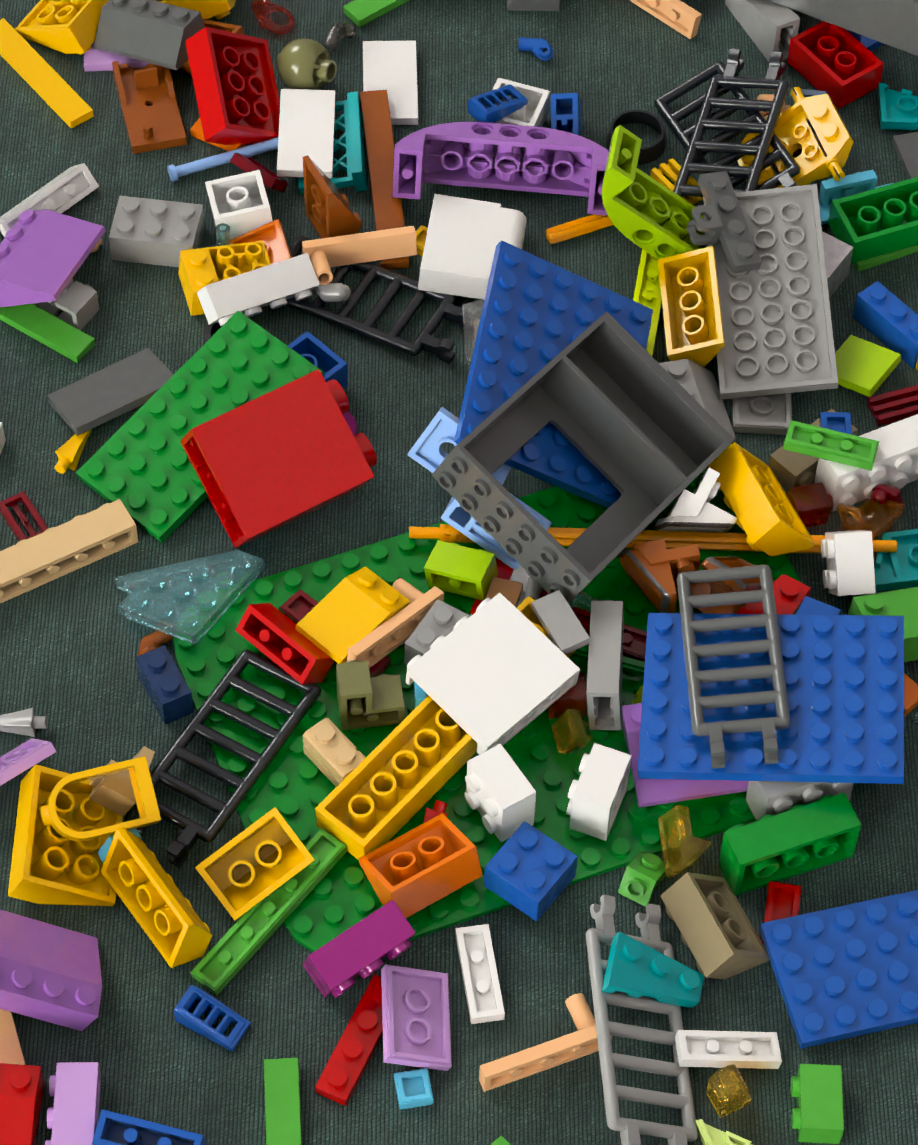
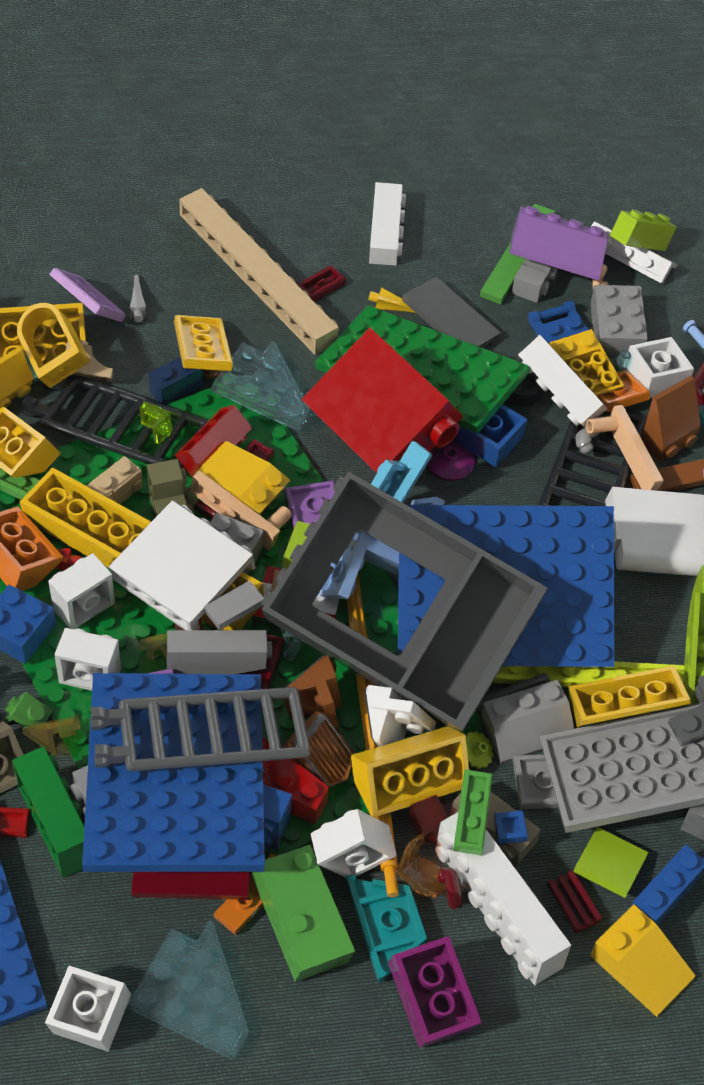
camera: 80 degrees right, 0 degrees up
(36, 174) = (643, 230): none -> lime brick
(119, 643) = (202, 343): none -> yellow tile
(151, 290) = (559, 328): none -> blue plate
(245, 695) = (156, 419): none -> clear neon green bracket
(389, 556) = (306, 500): none -> medium lavender tile
(393, 465) = (399, 477): none -> medium azure bracket

